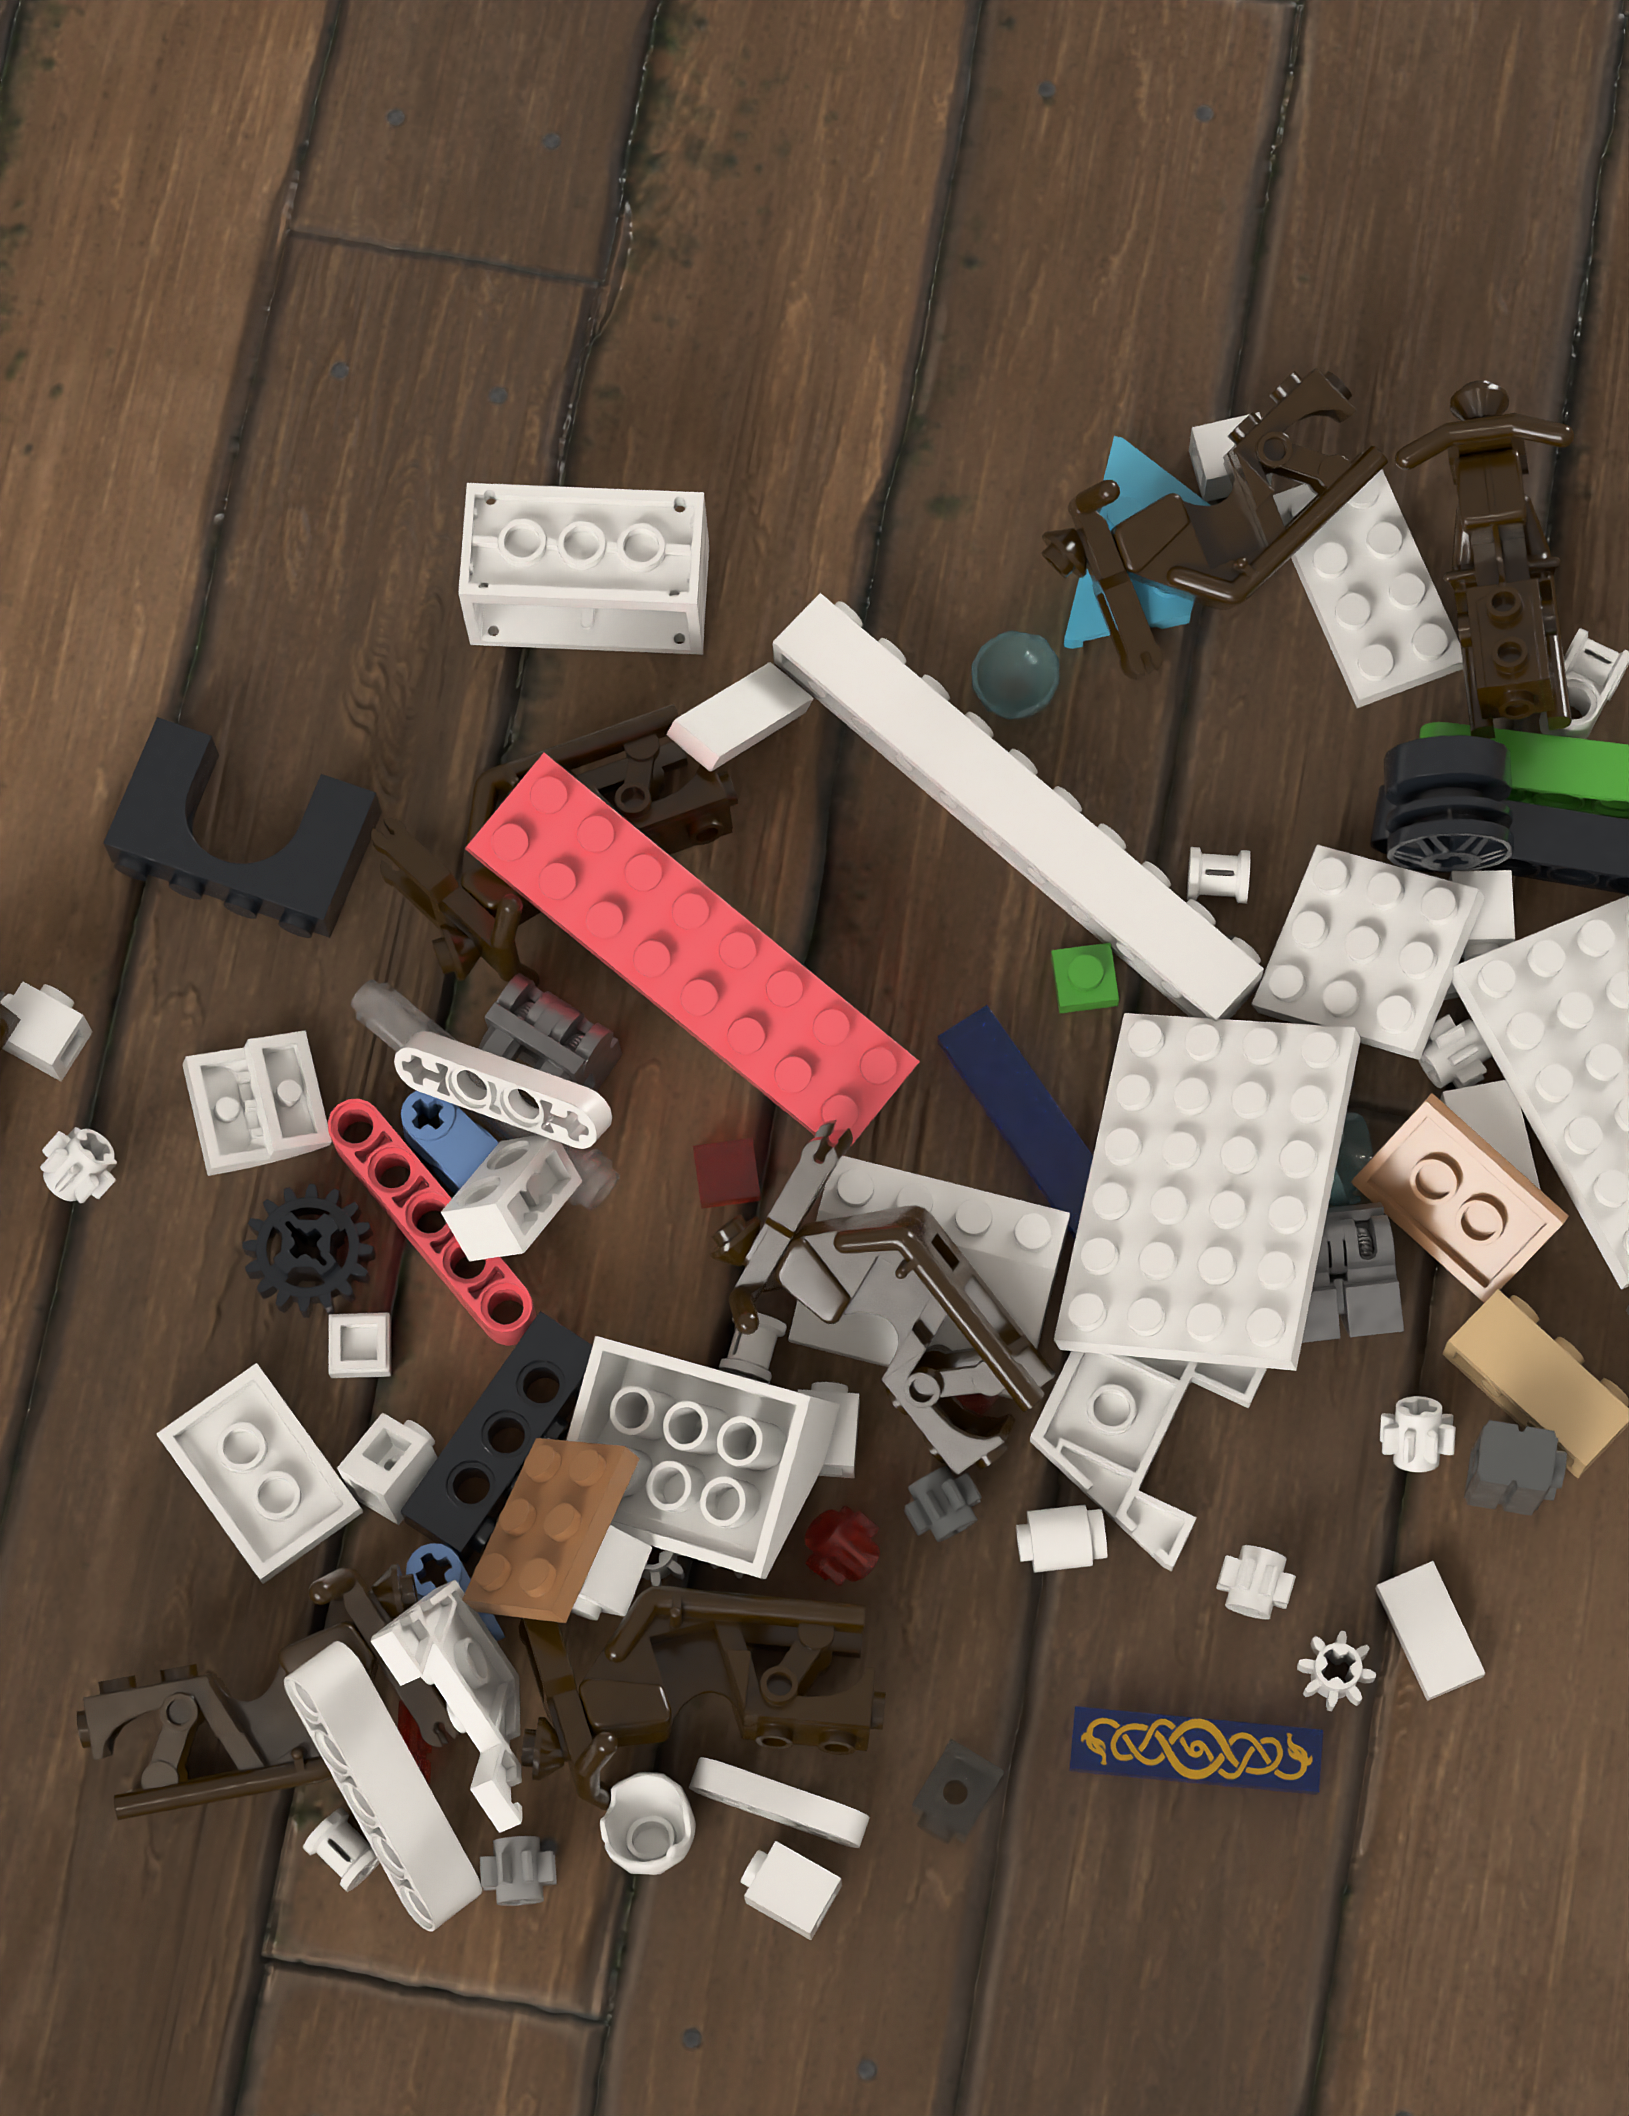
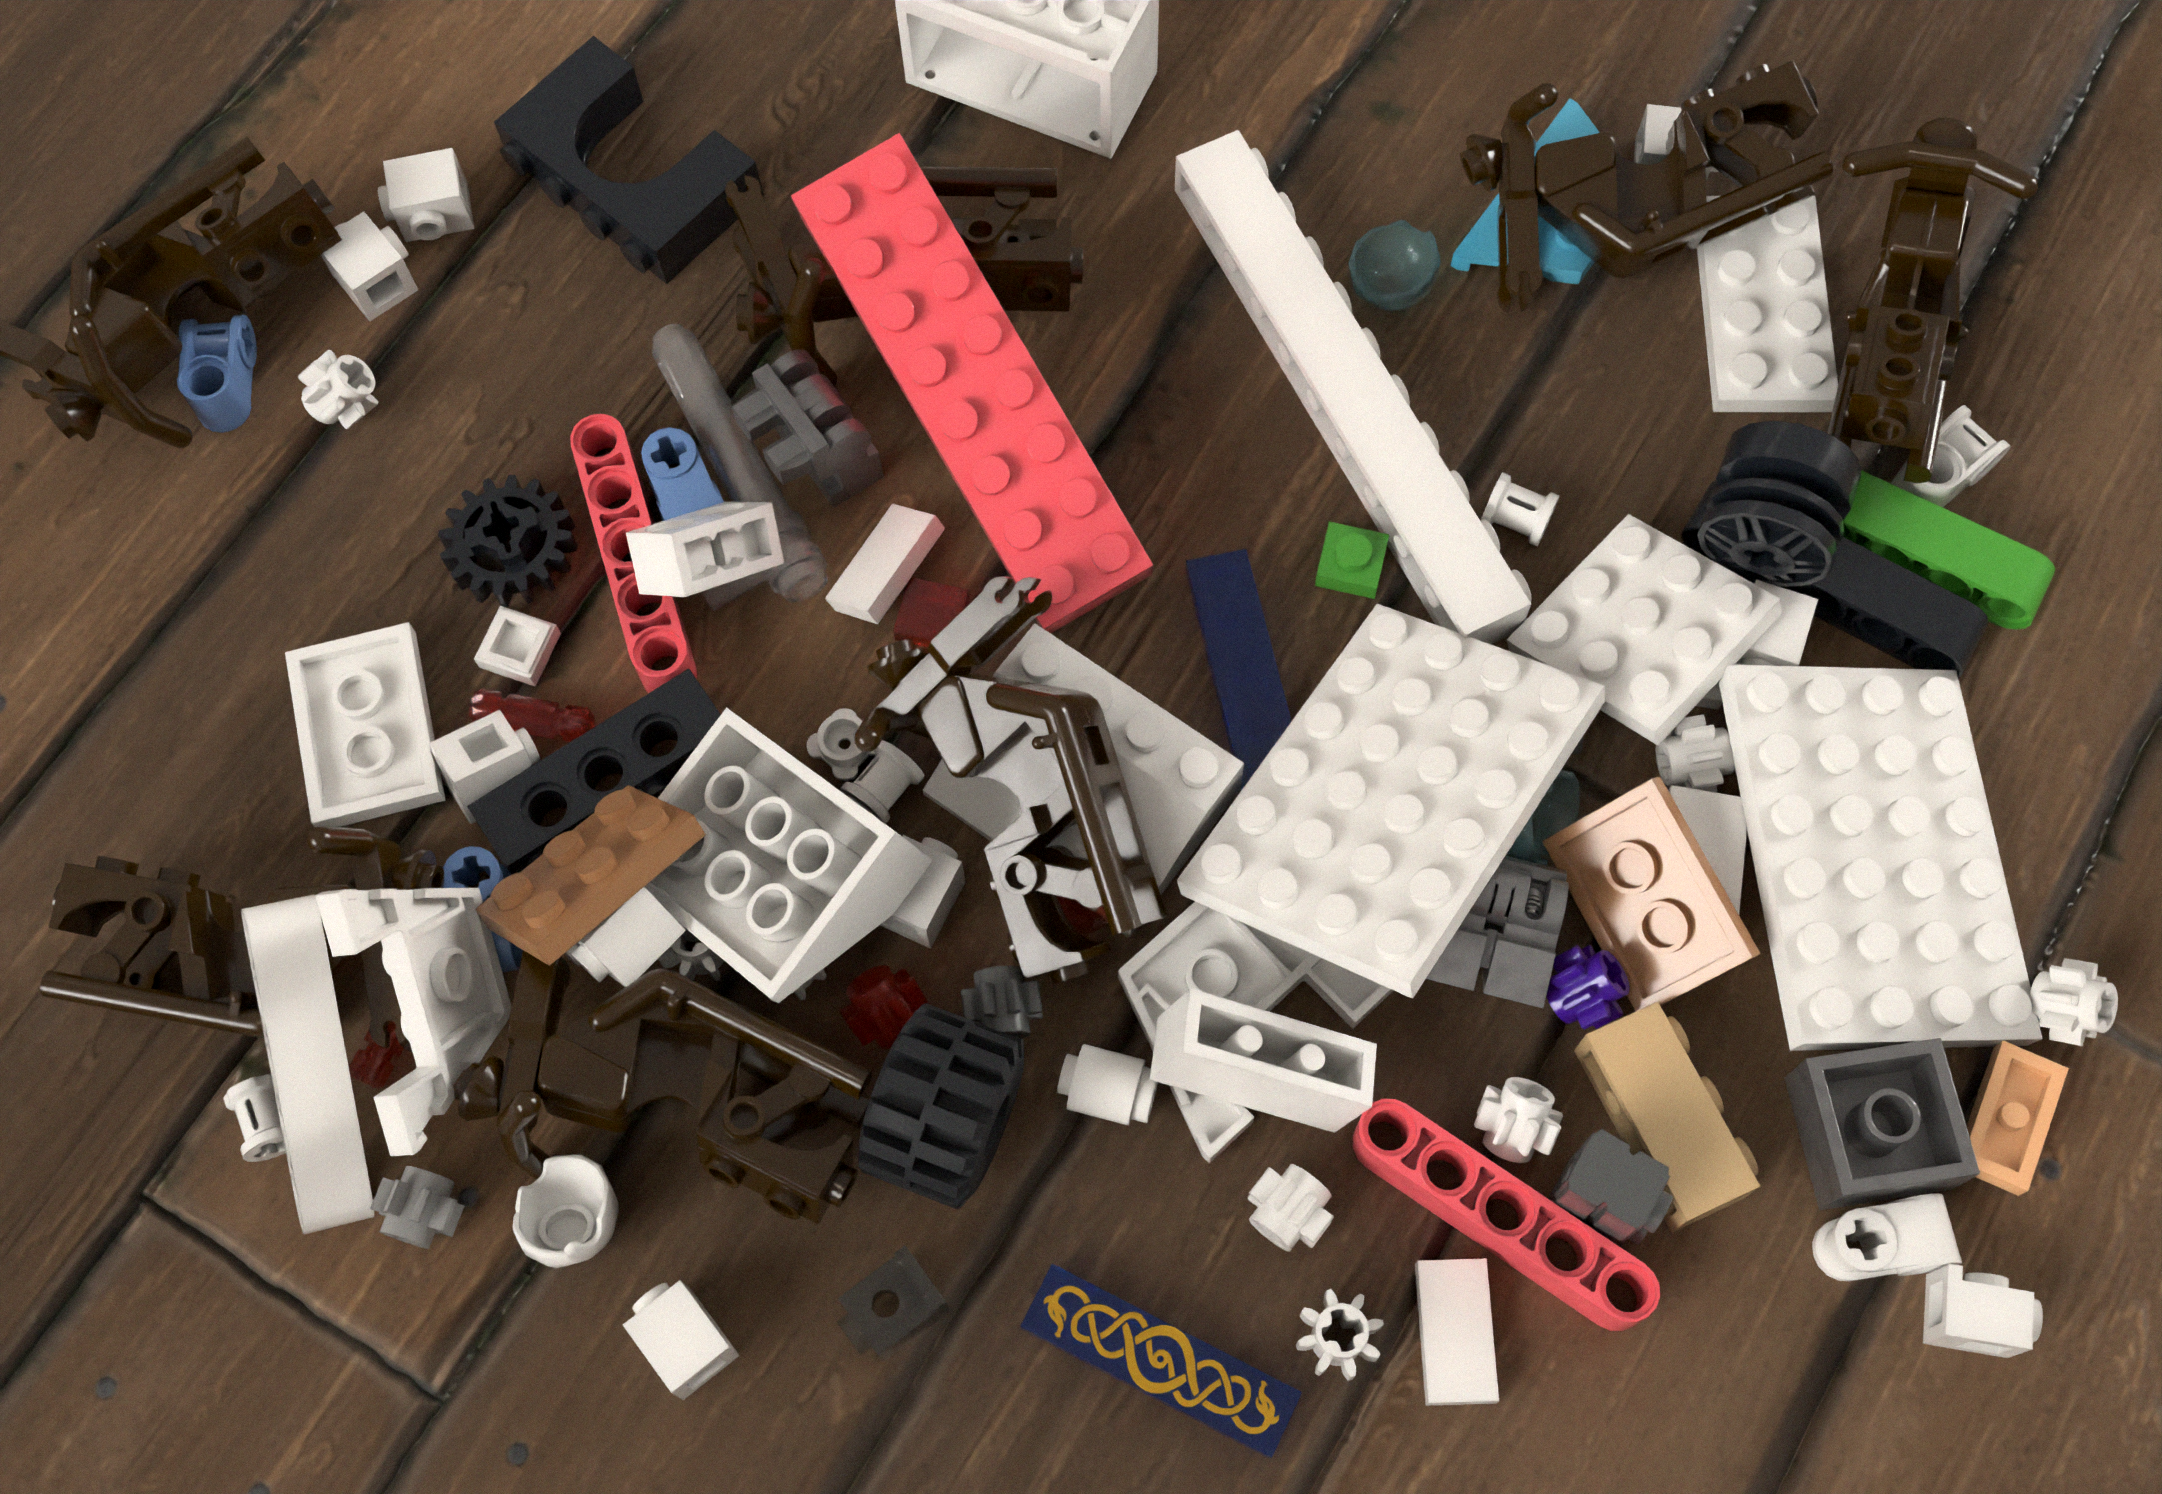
camera: 20 degrees right, 5 degrees down
(64, 938) = (426, 195): none -> white brick
(256, 1103) = (527, 397): white slope -> none
(408, 1403) = (536, 715): none -> clear red axle
(565, 1110) = (788, 480): white beam -> none
(665, 1141) = (885, 563): none -> white tile
(695, 1307) = (826, 742): none -> white plate
(739, 716) = (1115, 207): white tile -> none
(779, 1802) = (709, 1243): white beam -> none
(934, 1611) = (941, 1105): none -> black wheel
(1188, 1468) = (1263, 1061): none -> white brick
(1434, 1296) = (1587, 987): none -> dark purple gear
(1462, 1510) = (1537, 1216): none -> coral beam

